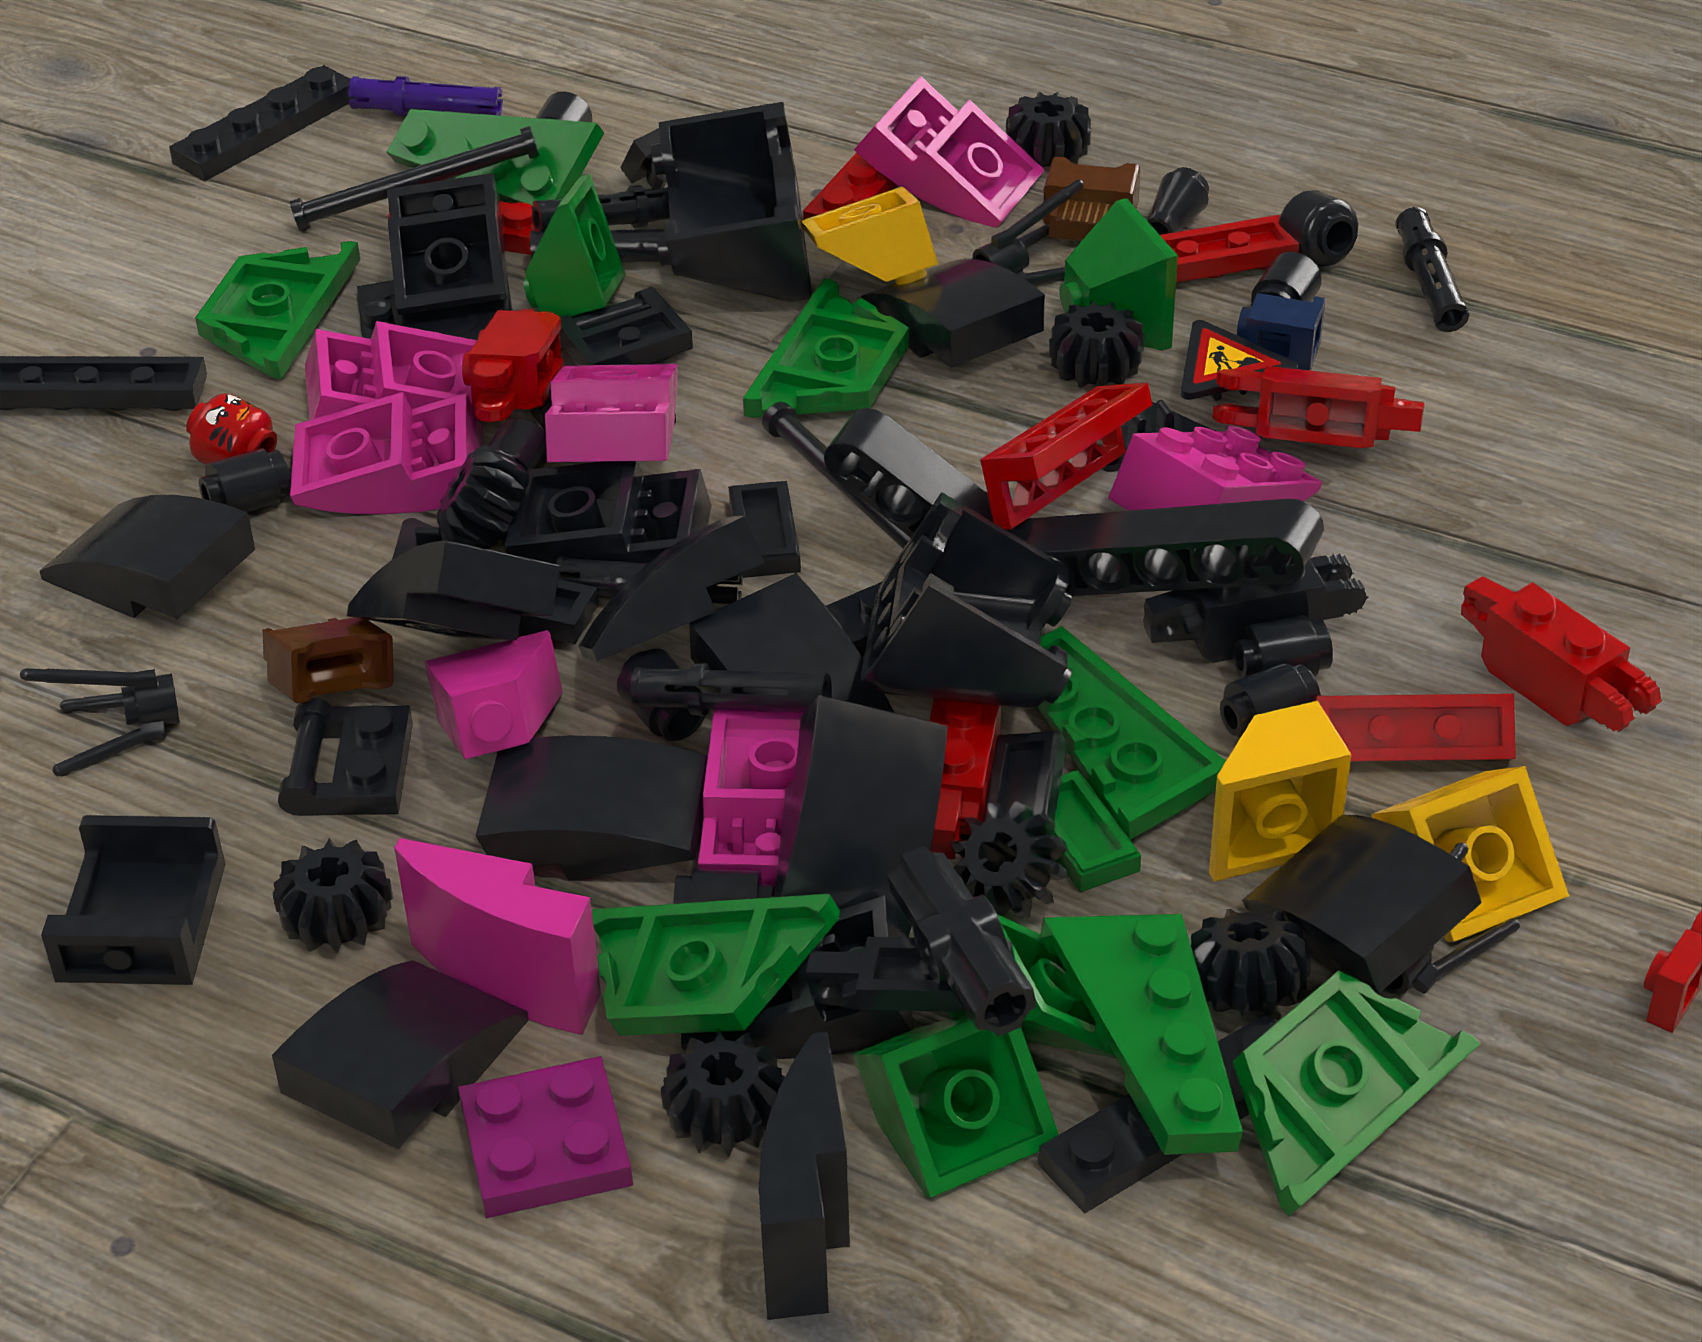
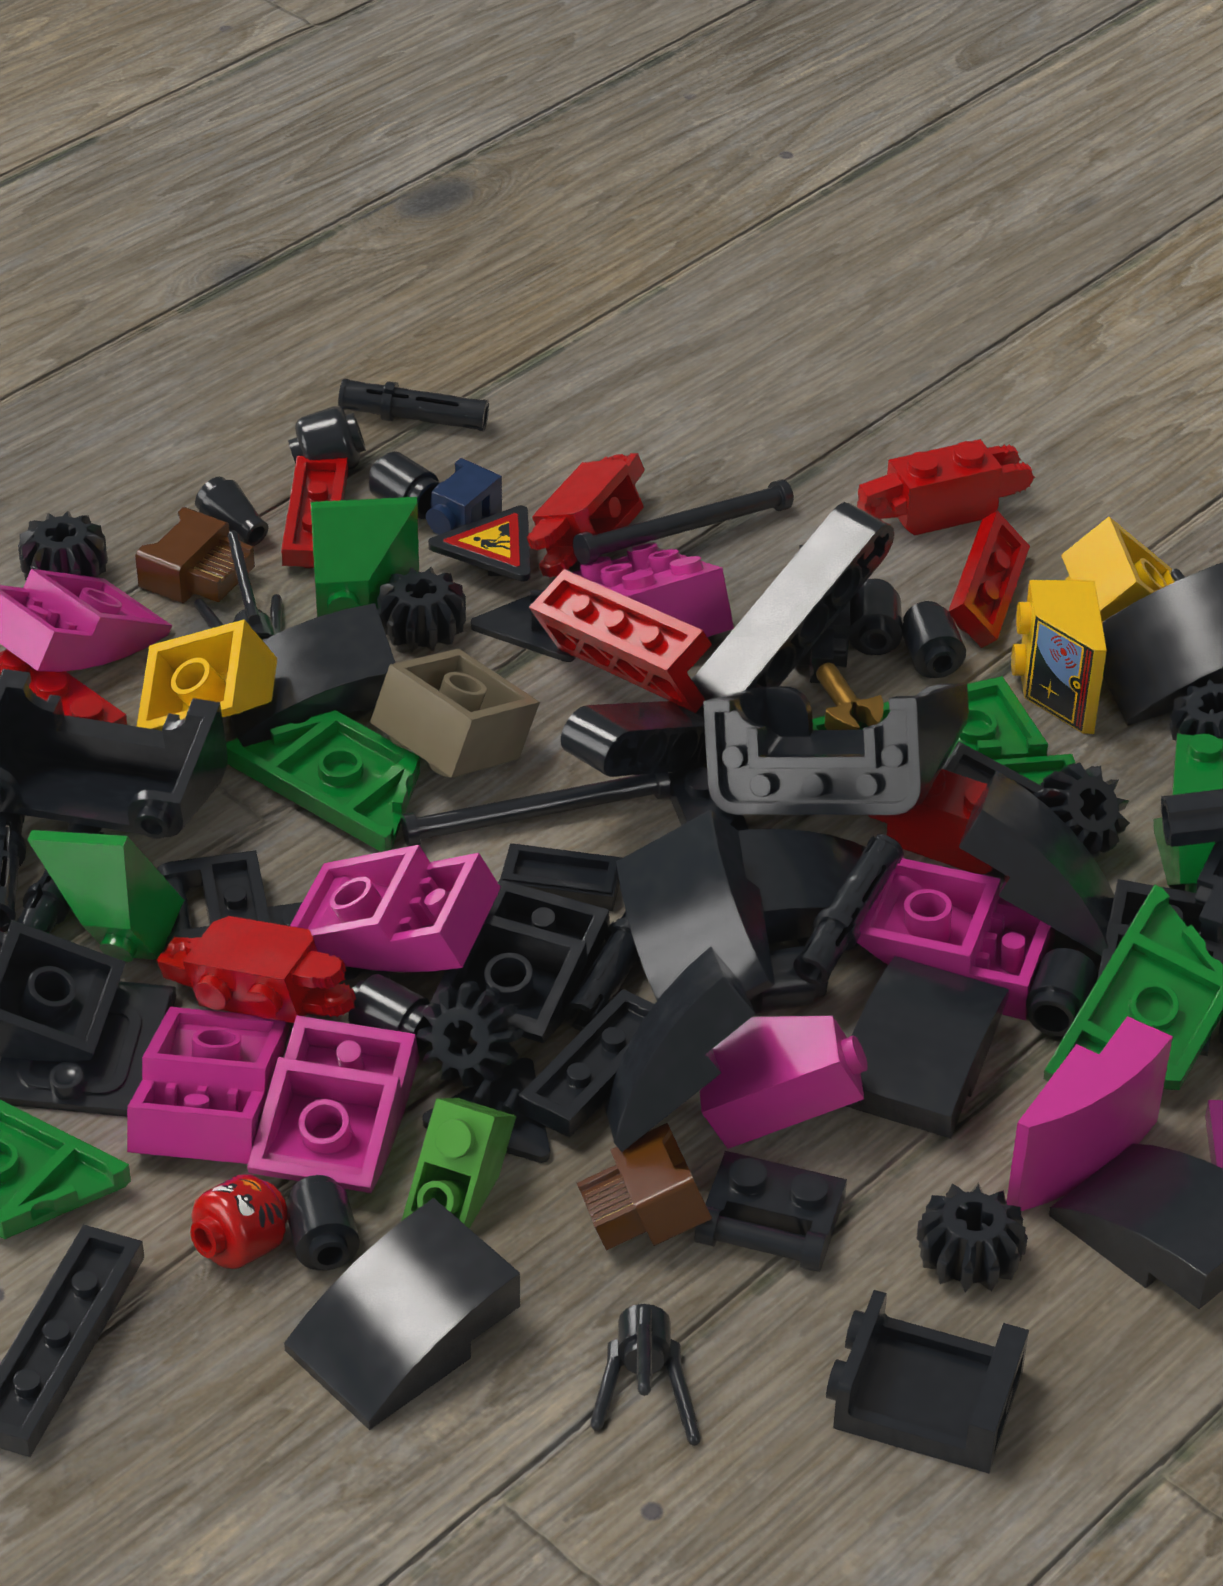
camera: 75 degrees left, 0 degrees up
(337, 538) = (460, 1157): none -> bright green slope
(922, 376) = (454, 712): none -> dark tan brick
(1089, 653) = (847, 704): none -> pearl gold bar
(1462, 542) = (589, 546): none -> black bar

